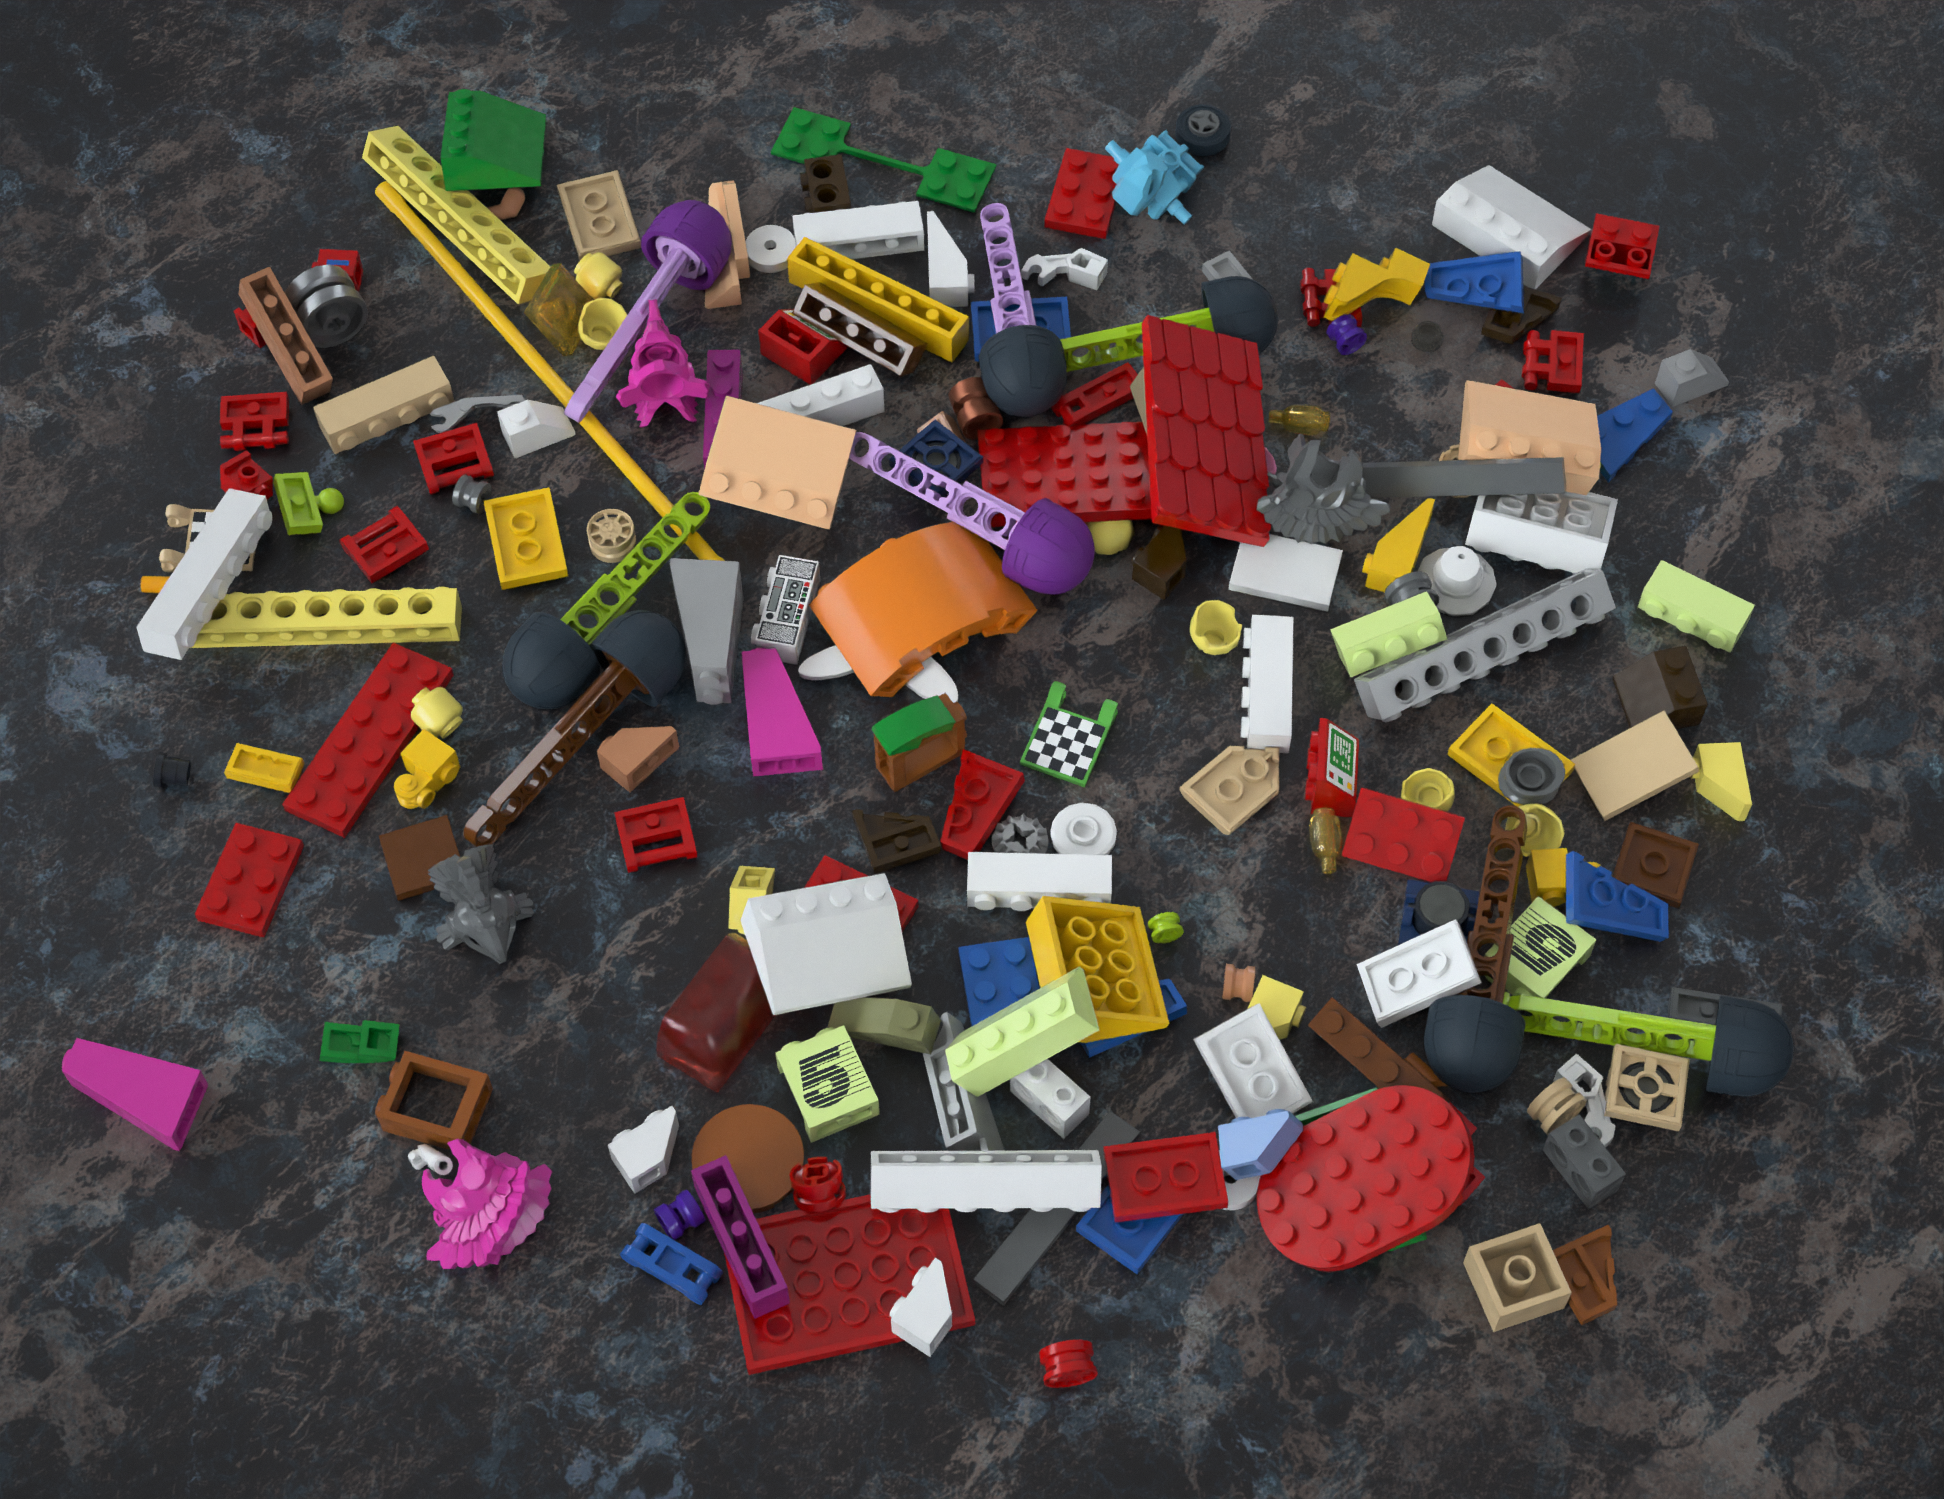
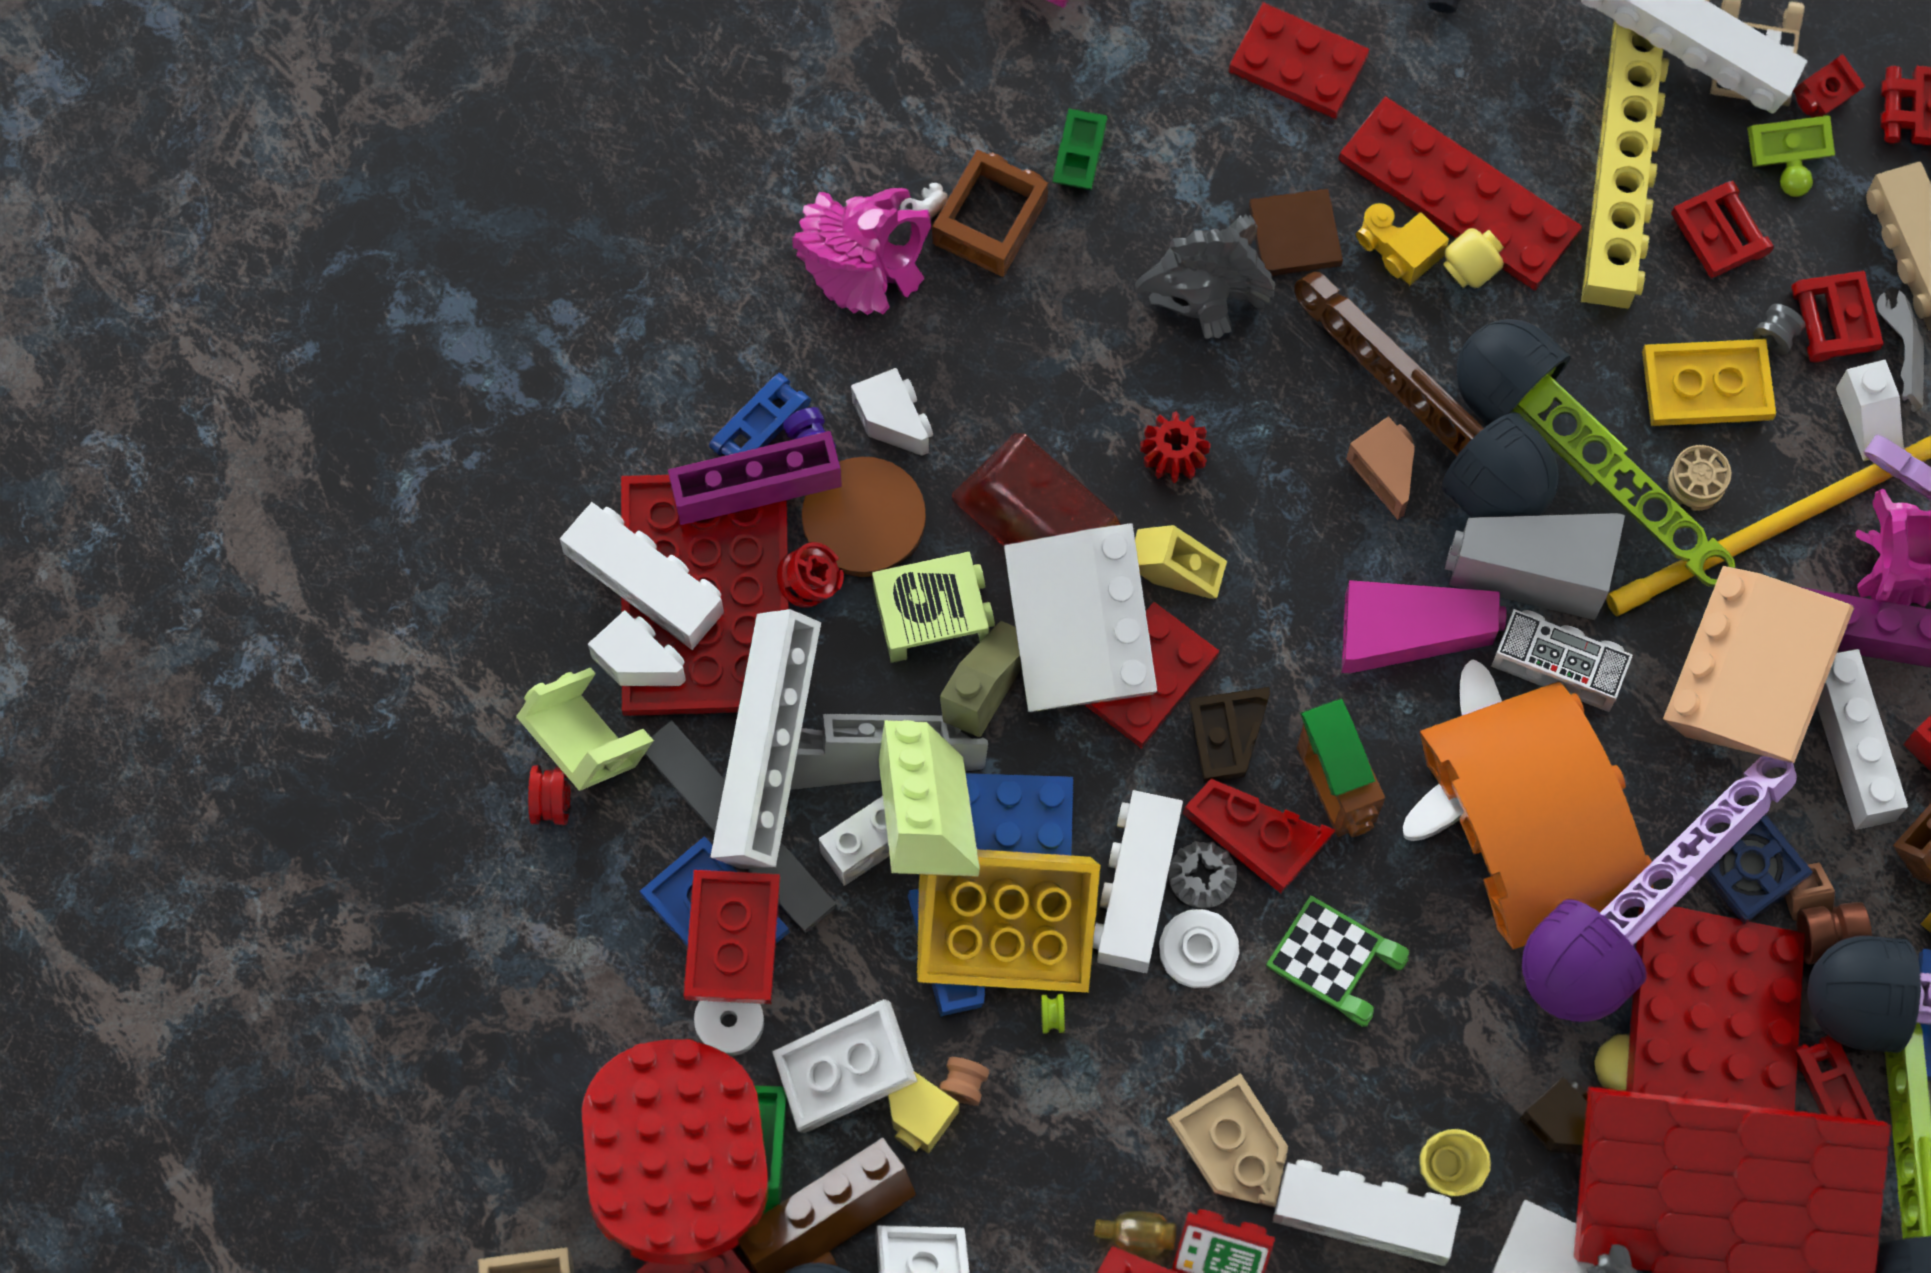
camera: 100 degrees right, 10 degrees up
(264, 768) = (1435, 82): yellow plate -> none
(630, 914) = (1190, 444): none -> red gear
(653, 824) = (1292, 472): red plate -> none
(847, 1321) = (642, 574): none -> white brick
(1011, 1347) = (577, 734): none -> yellowish green panel
(1257, 1144) = (744, 1040): slope -> none

